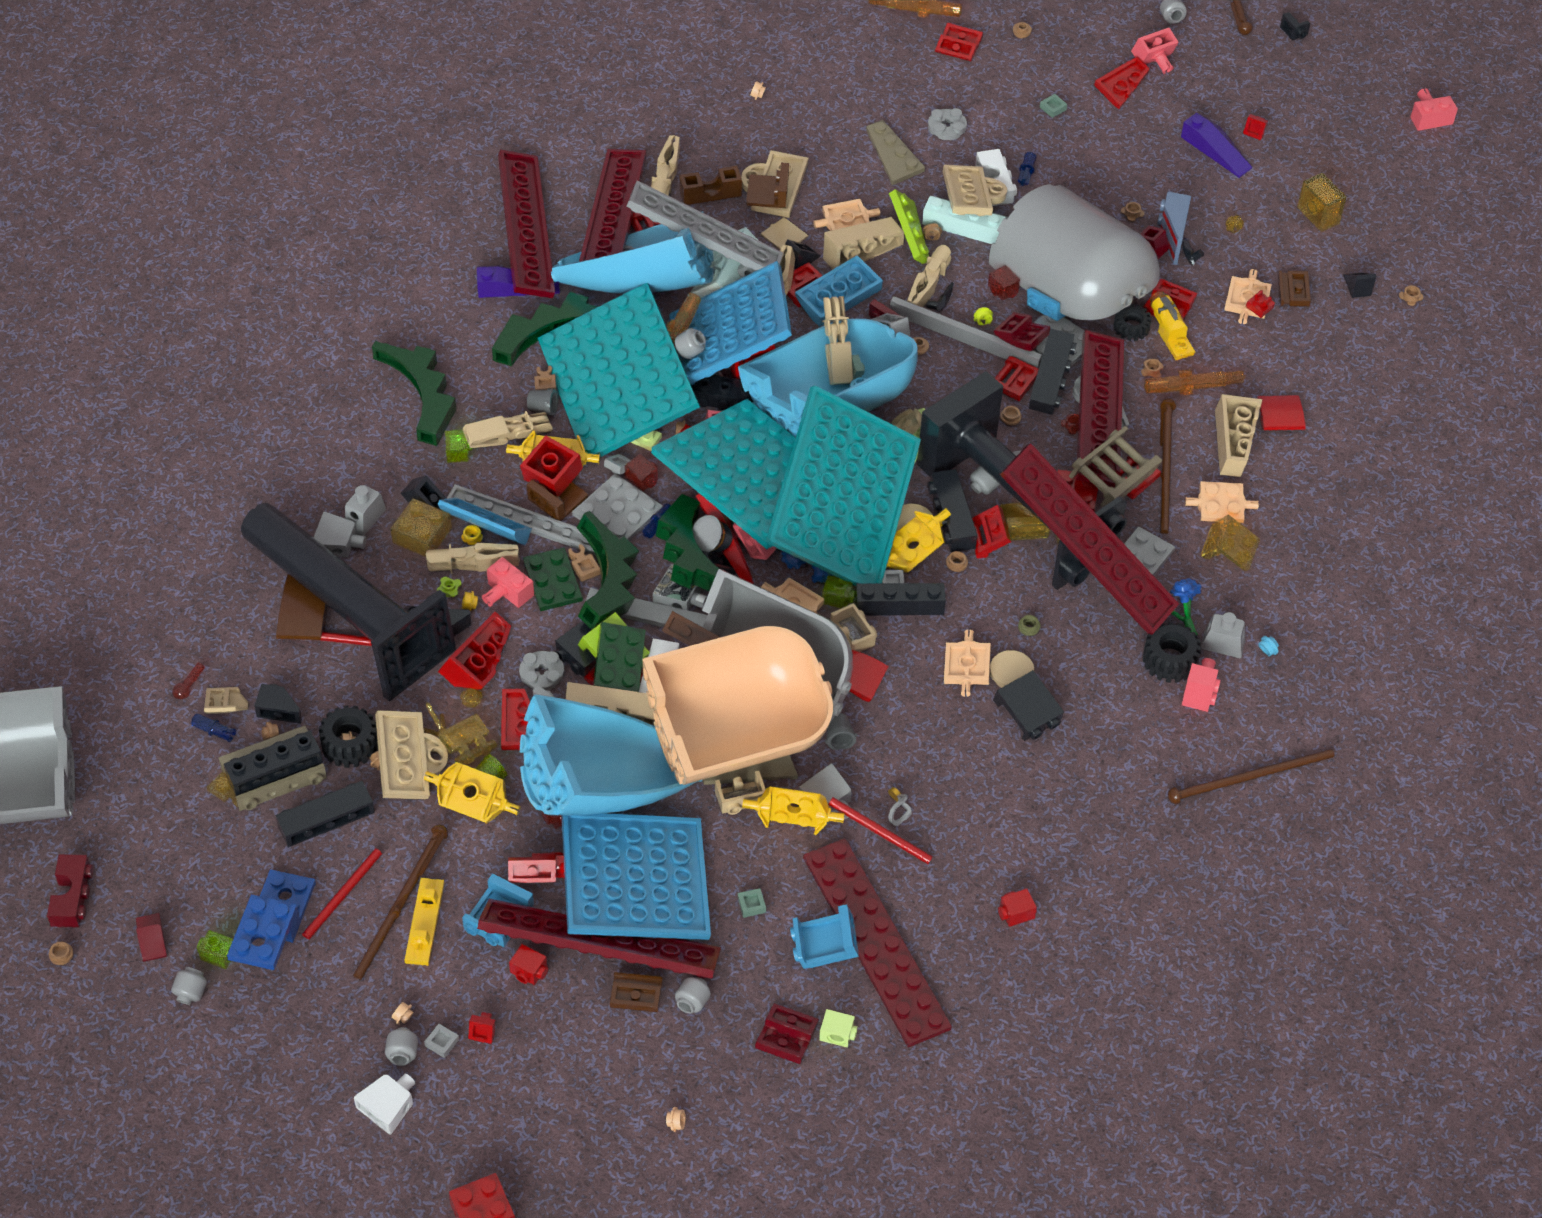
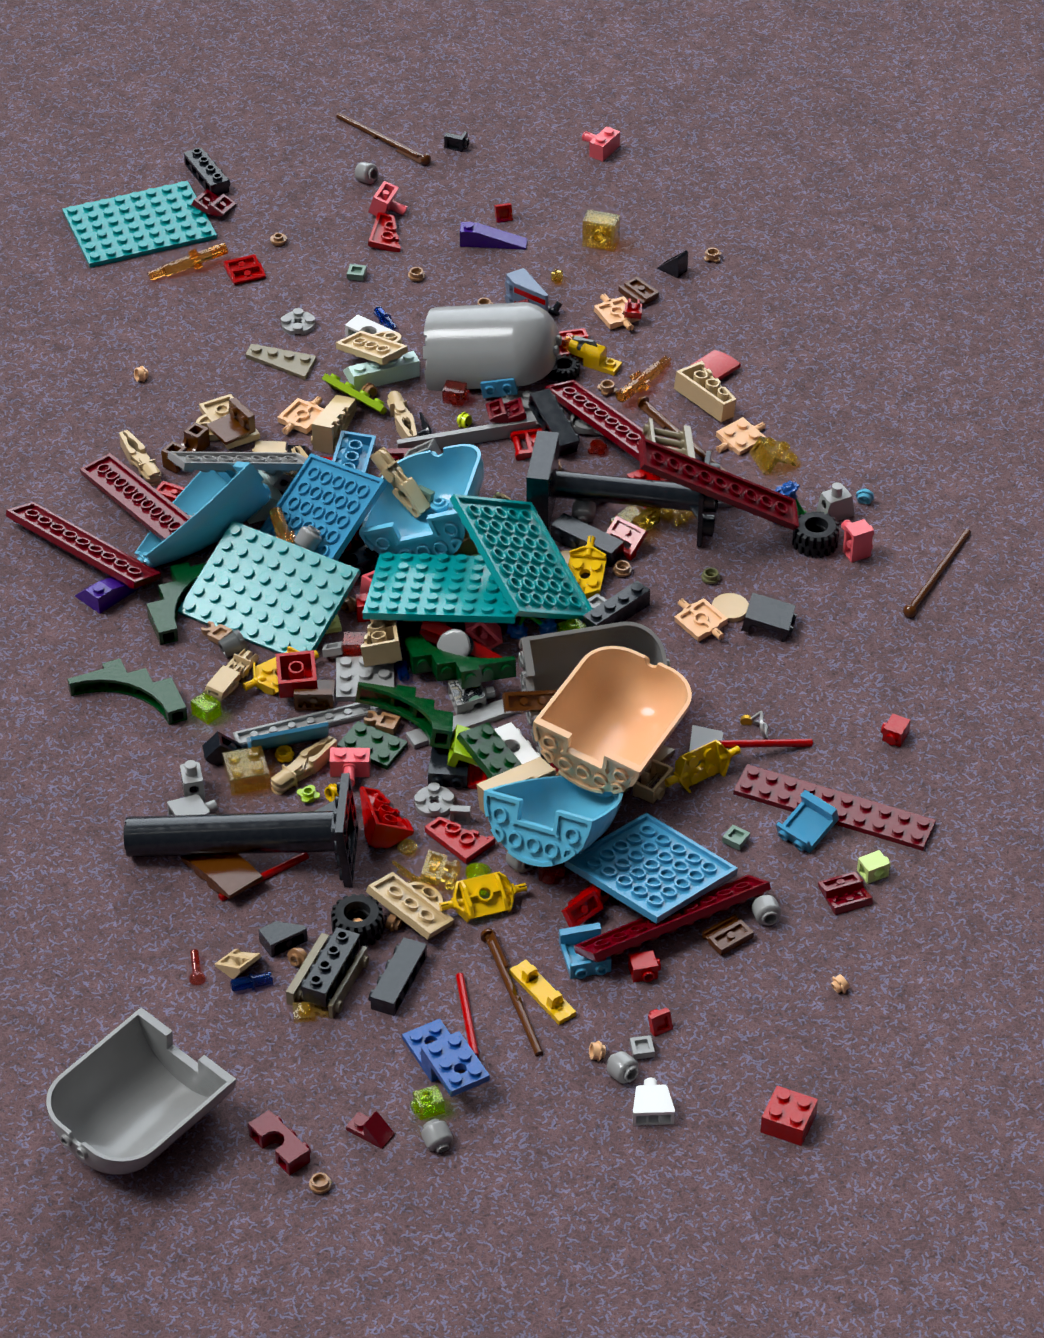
camera: 40 degrees left, 10 degrees down
(652, 488) = (381, 643): none -> tan wedge
(1106, 141) = (416, 274): none -> medium nougat plate

